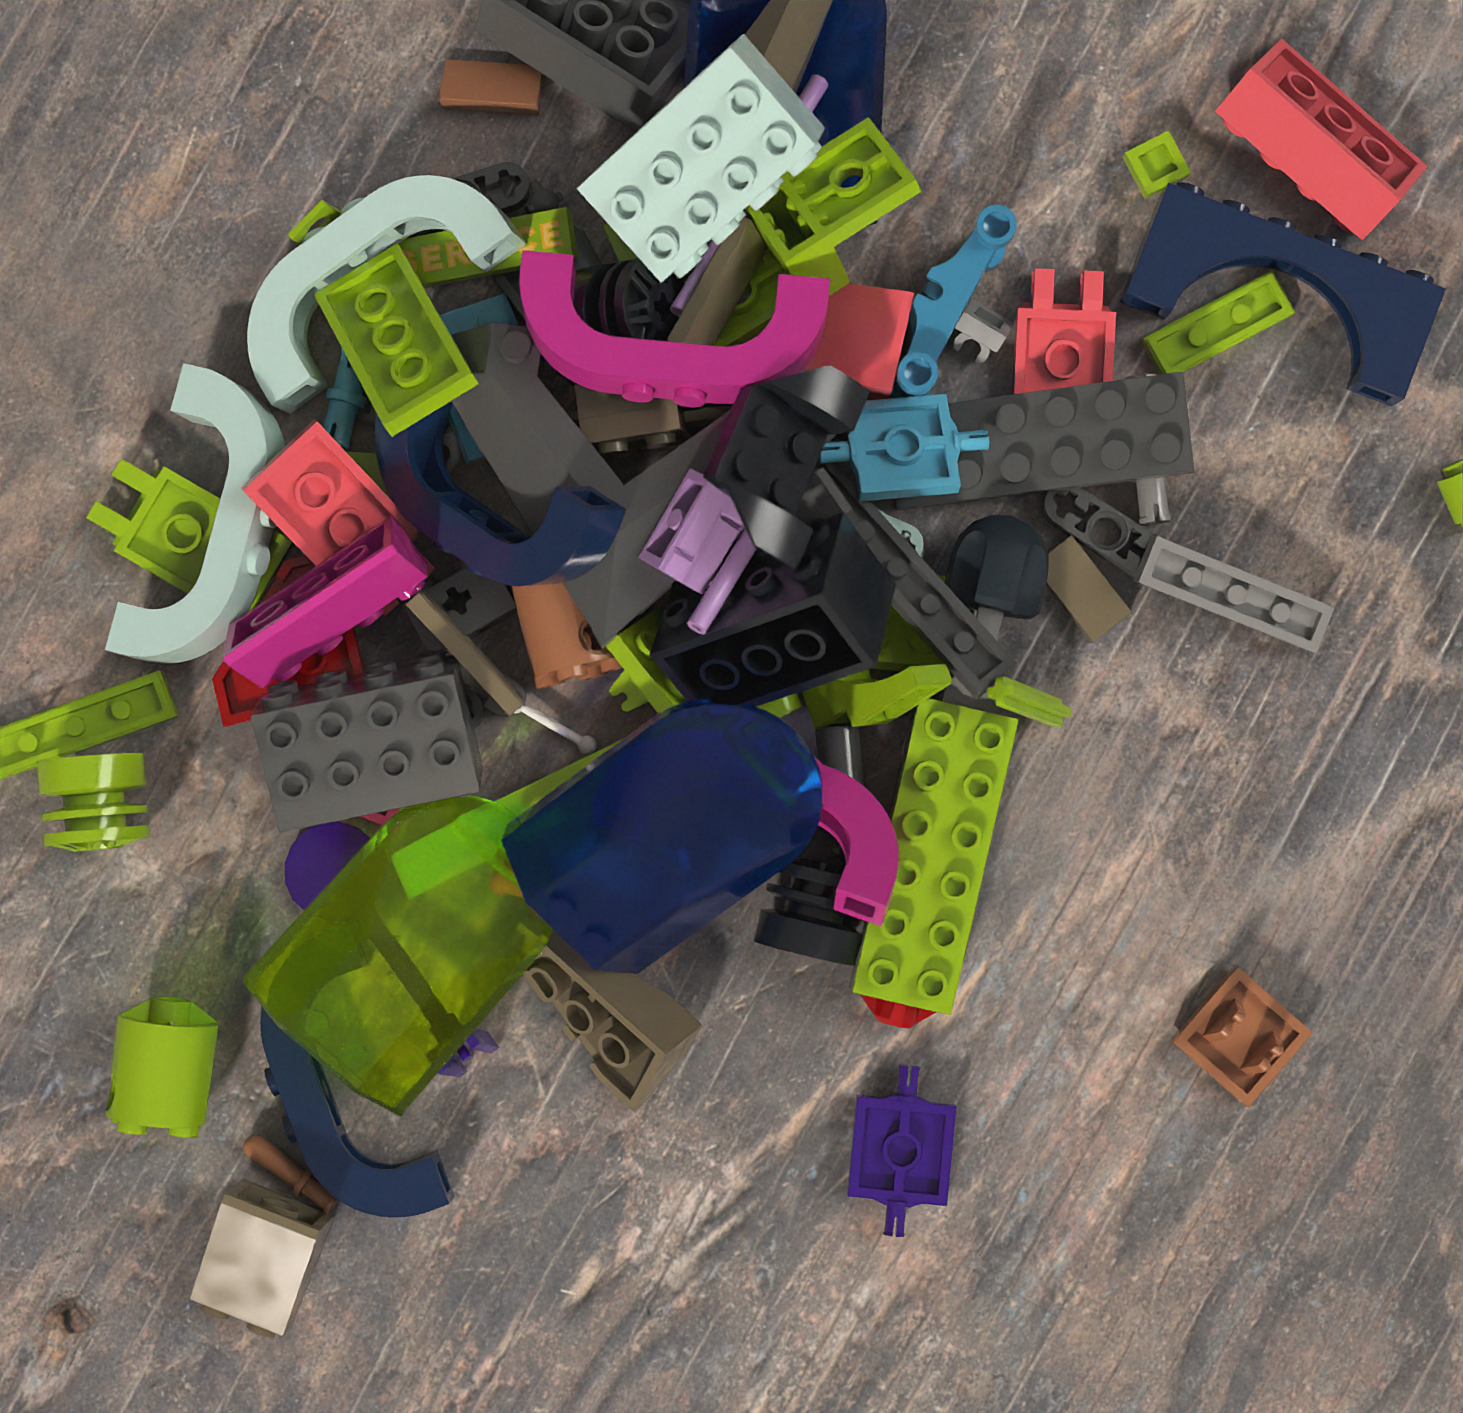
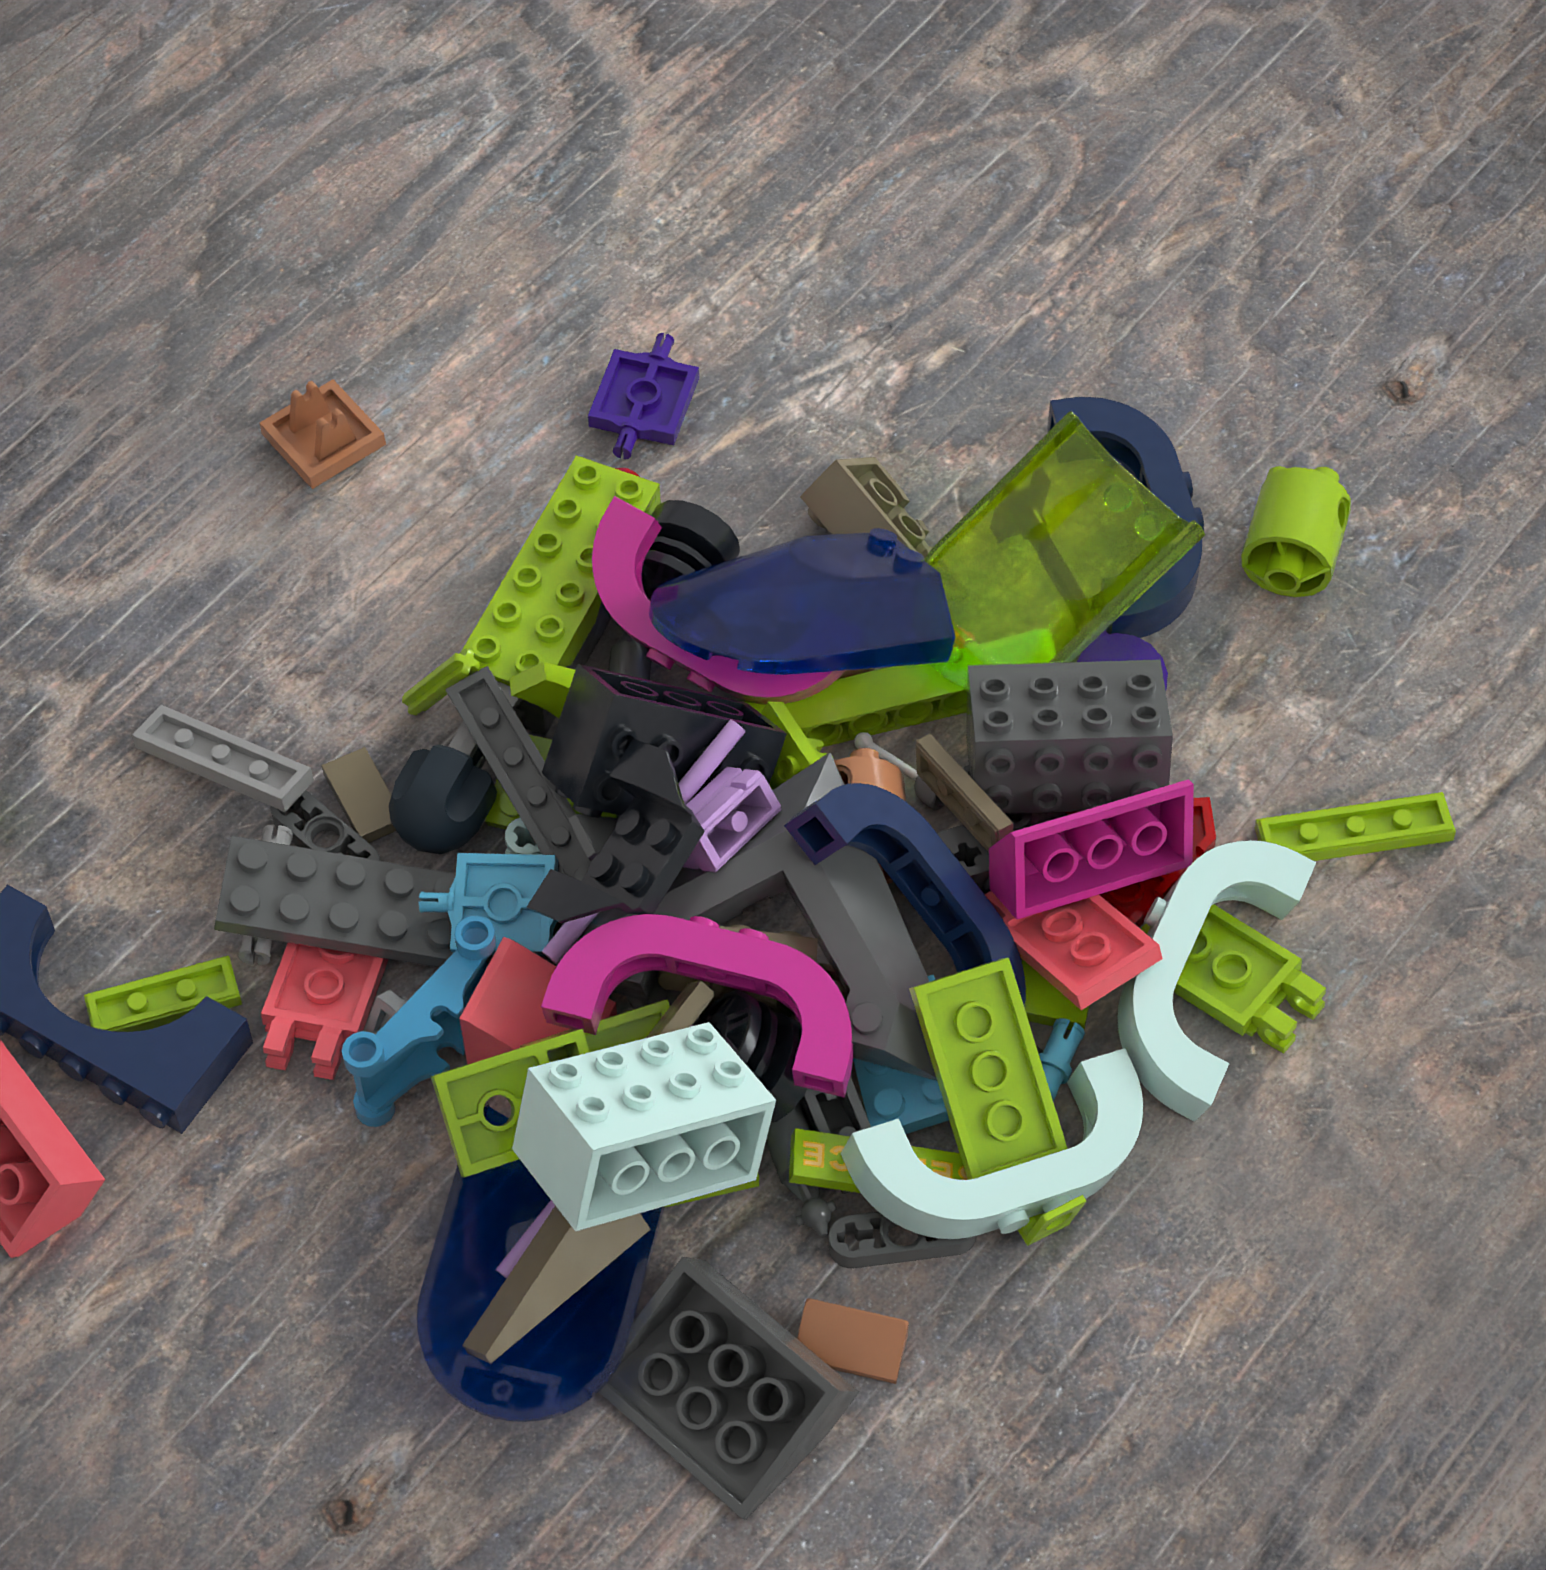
camera: 170 degrees left, 30 degrees down
(93, 800) = (1339, 744): lime wheel -> none
(260, 1258) = (1220, 397): slope -> none
(280, 1165) = (1203, 468): nougat piece -> none
(1156, 164) = (178, 1149): lime plate -> none

